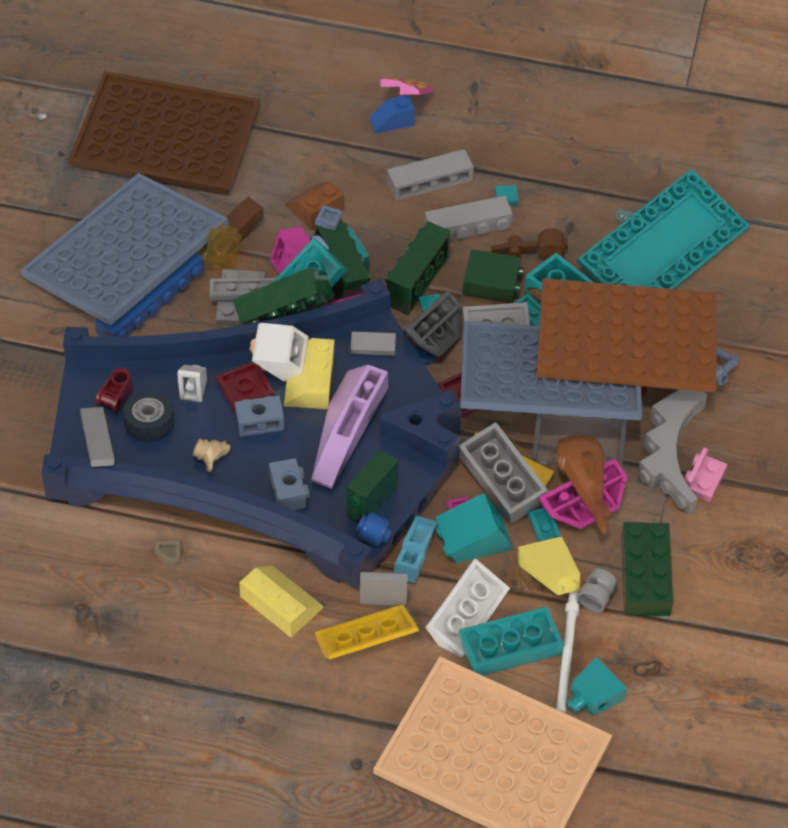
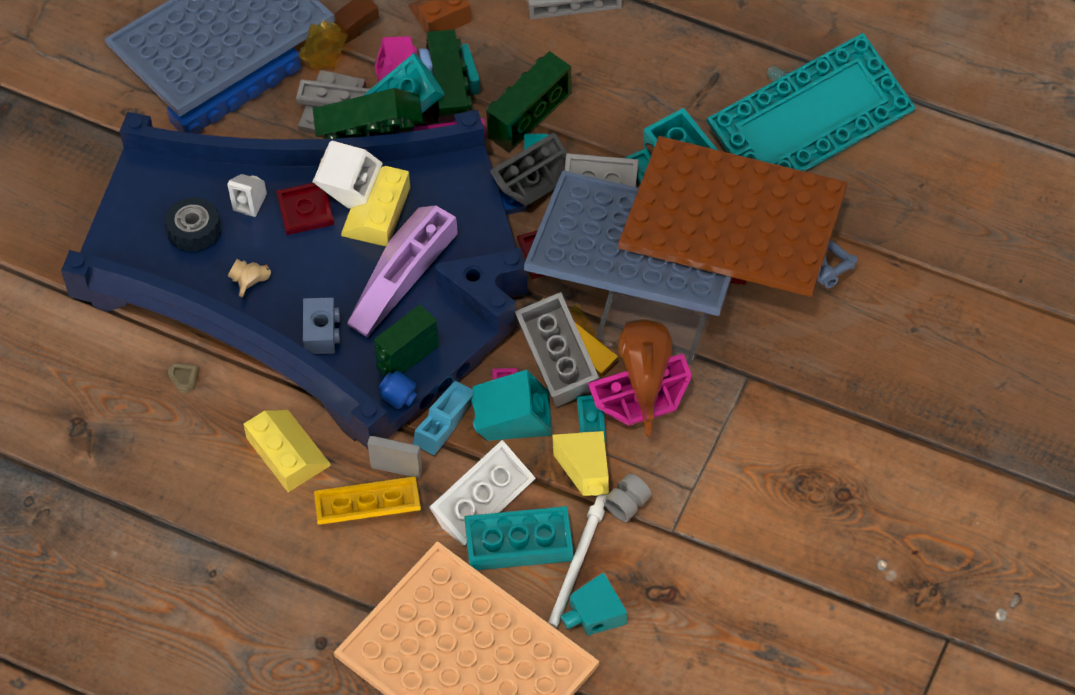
camera: 15 degrees right, 5 degrees up
(97, 436) = (130, 239): light grey tile -> none
(113, 392) = (163, 192): dark red piece -> none
(269, 420) = (299, 250): sand blue brick -> none
(328, 217) = (440, 31): sand blue tile -> none
(373, 343) = (454, 180): light grey tile -> none
(473, 217) = (604, 53): light grey brick -> none
(492, 276) = (610, 123): dark green brick -> none
(510, 193) = (653, 32): teal tile -> none
(548, 243) = (684, 94): reddish brown piece -> none
(647, 569) = (688, 483): dark green brick -> none
(661, 465) = (762, 318): light grey arch -> none
(705, 475) = (783, 388): bright pink bracket -> none

